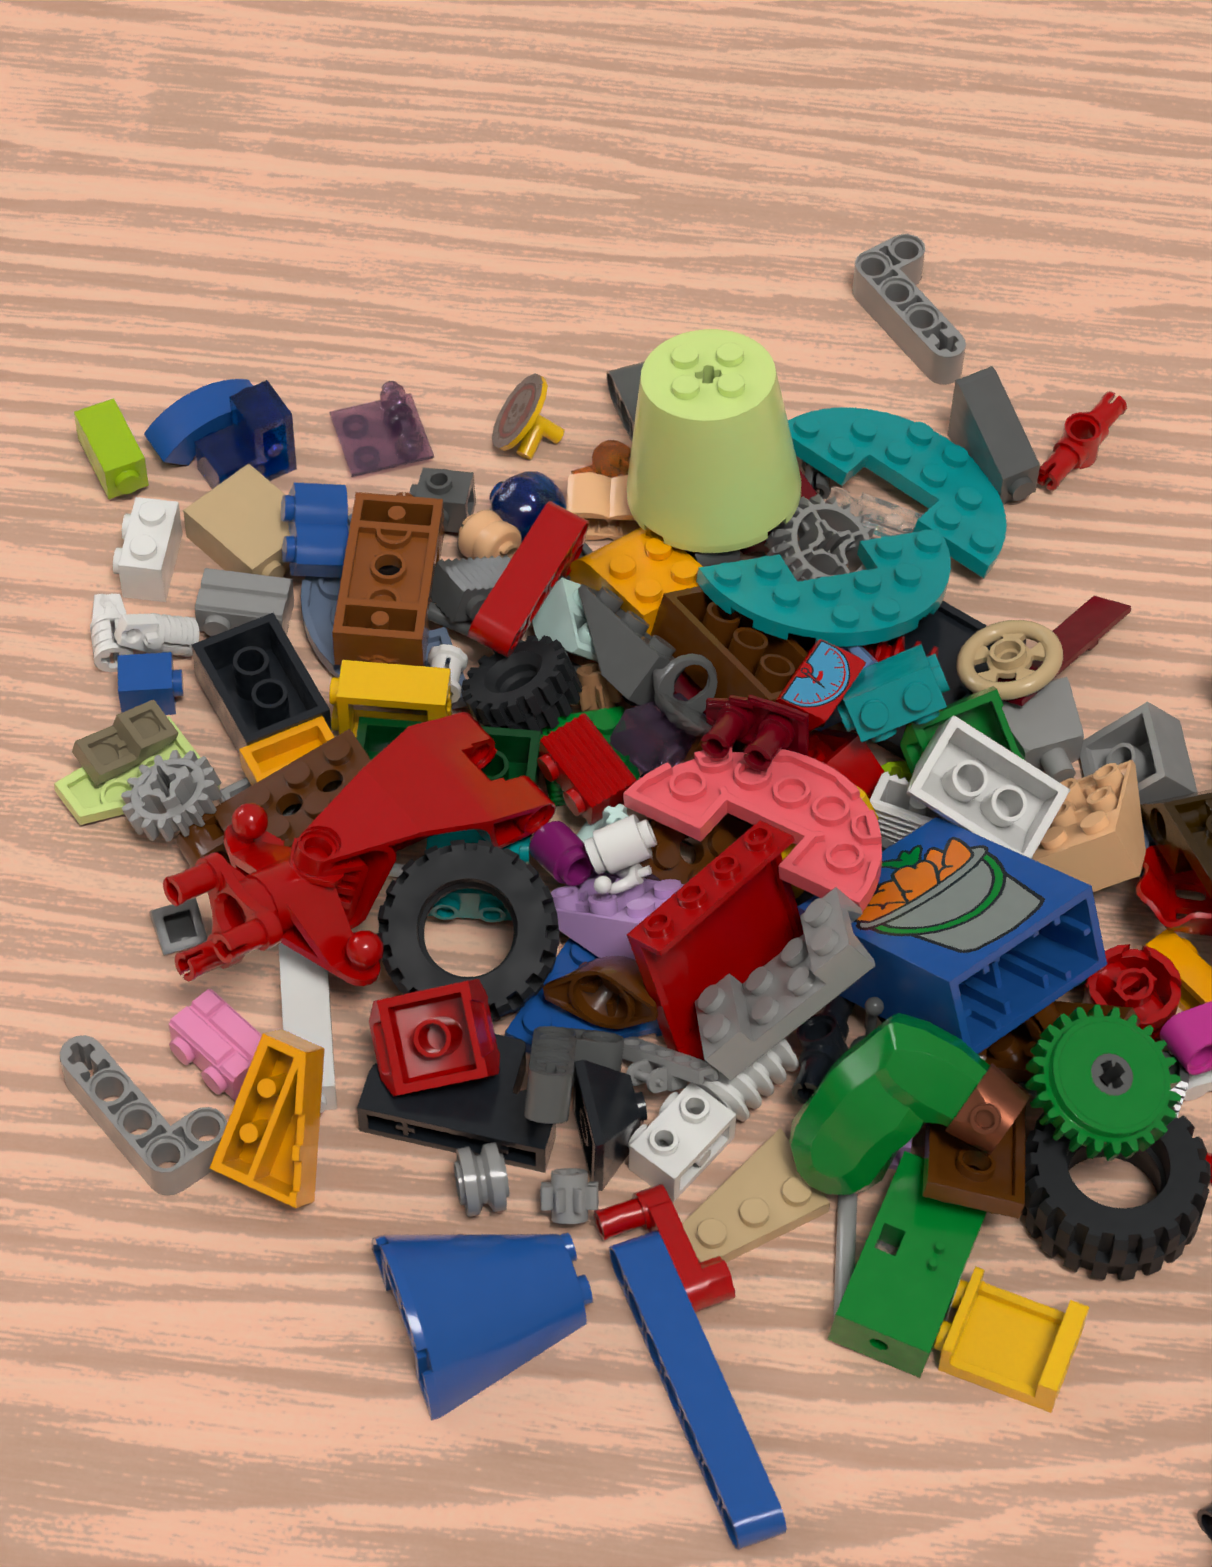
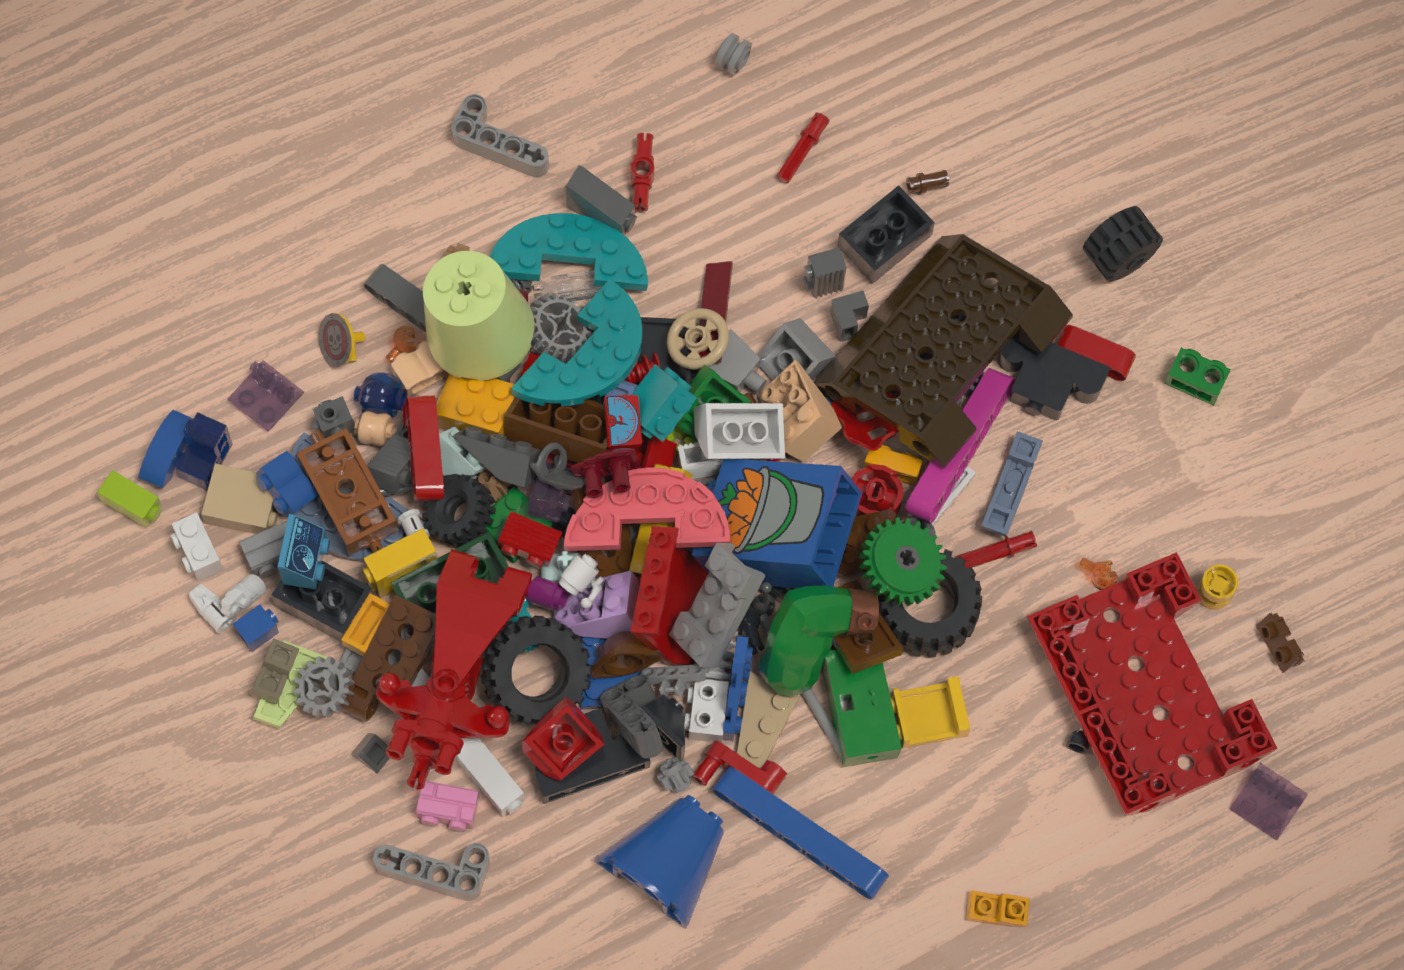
camera: 35 degrees left, 15 degrees up
(263, 603) = (303, 553): none -> slope
(276, 1121) = (513, 835): light orange wedge -> none
(481, 1179) = (628, 794): light grey wheel -> none
(737, 1130) = (738, 689): none -> blue plate

